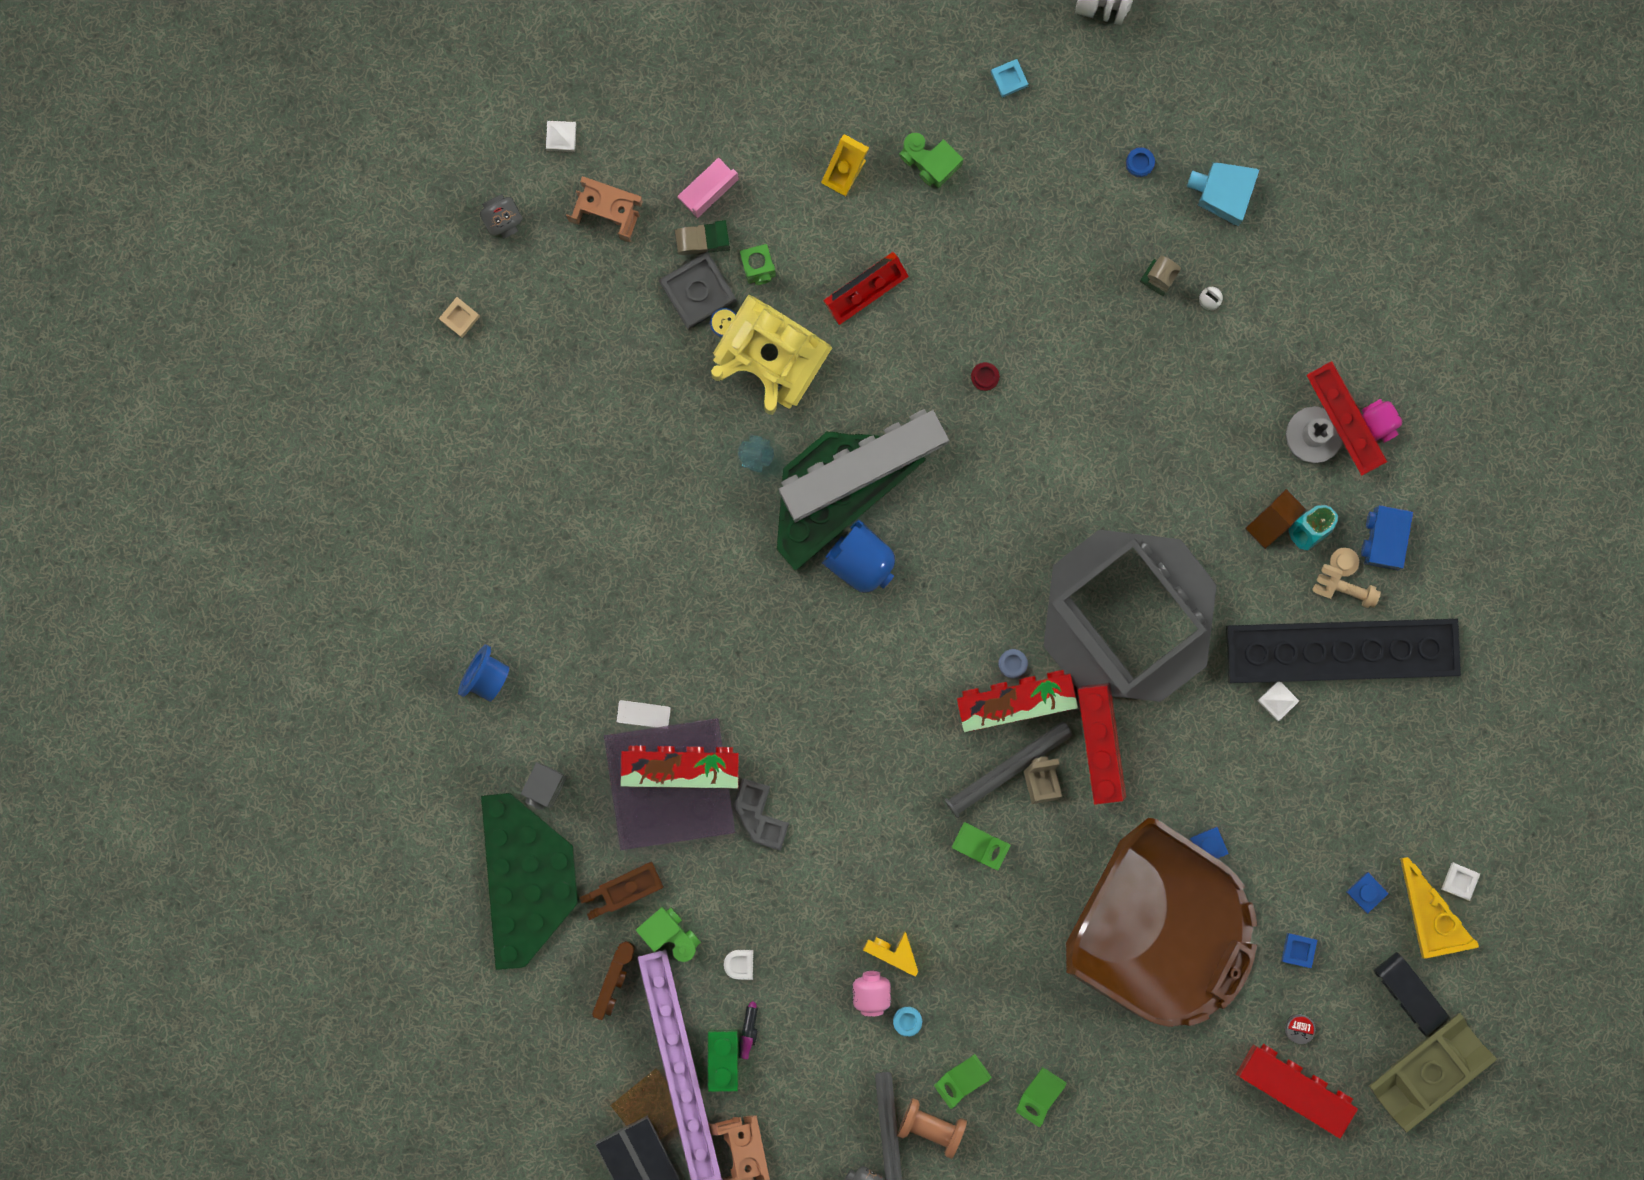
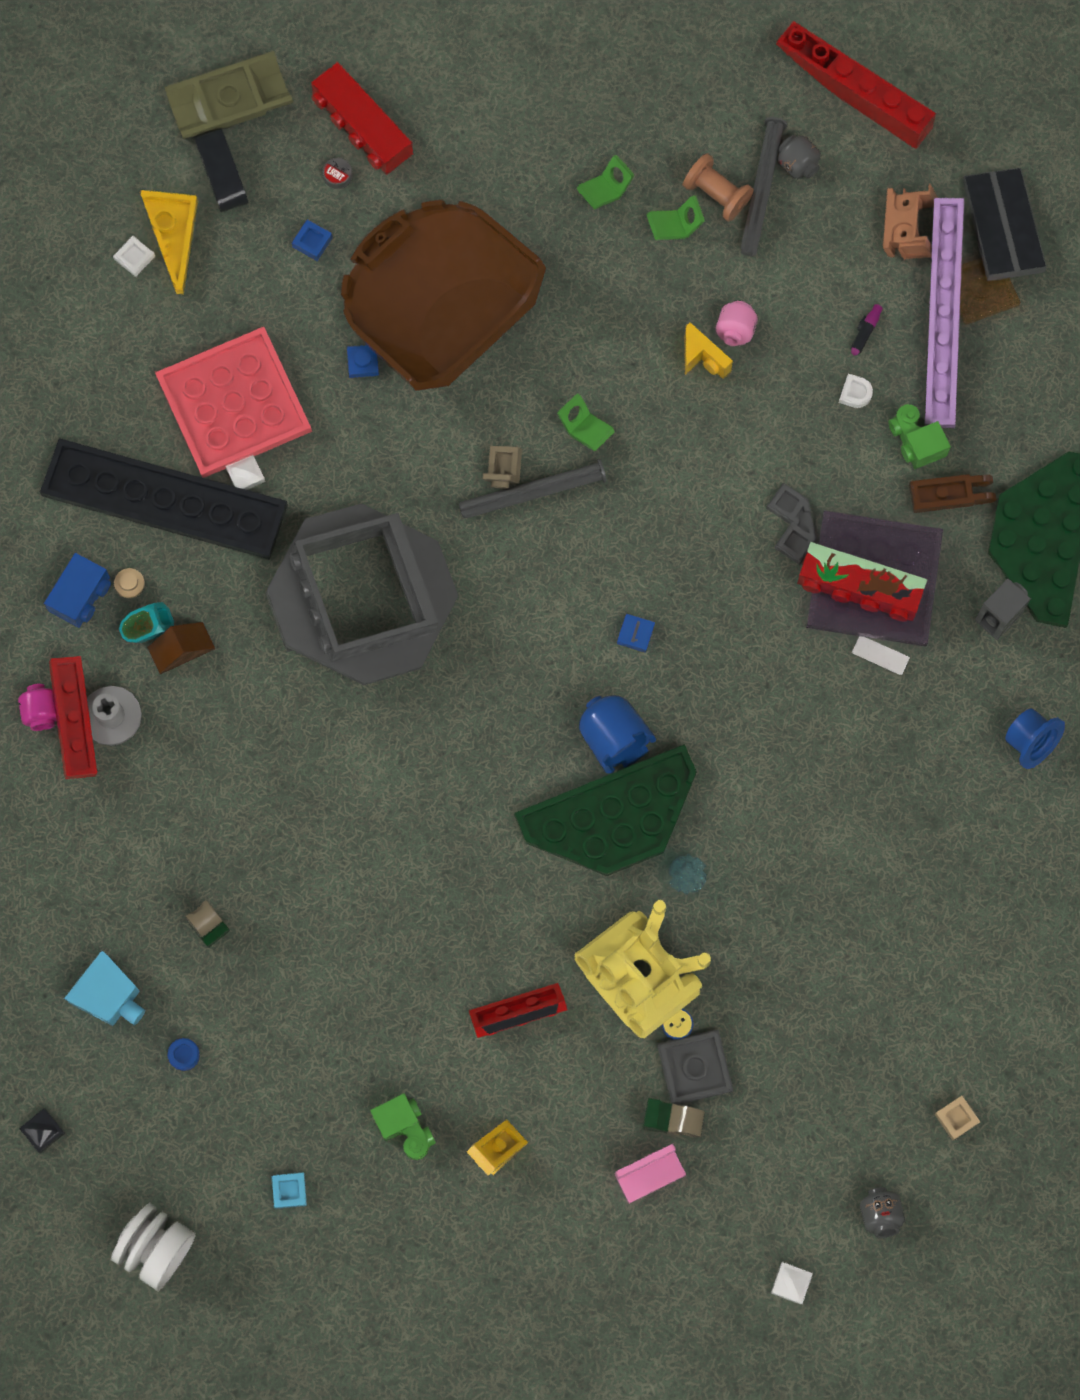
camera: 160 degrees left, 10 degrees down
(607, 204) = (766, 1186): nougat piece -> none
(614, 978) = (983, 413): reddish brown hinge -> none
(722, 1060) = (899, 306): green brick -> none
(760, 275) = (626, 1061): bright green bracket -> none
(863, 465) = (581, 822): light grey brick -> none
(871, 663) = (635, 633): none -> blue tile
(907, 1021) = (709, 292): medium azure tile -> none
(985, 376) = (424, 881): dark red plate -> none
(1013, 663) = (494, 589): sand blue tile -> none
(1017, 702) = (503, 546): brick -> none
(1102, 743) = (434, 480): red brick -> none
(1209, 303) = (156, 891): white hinge -> none
(1236, 60) = (42, 1130): none -> black tile
(1314, 765) = (233, 402): none -> coral plate
(1367, 892) = (227, 273): blue plate -> none
(1369, 596) = (149, 568): tan hinge -> none

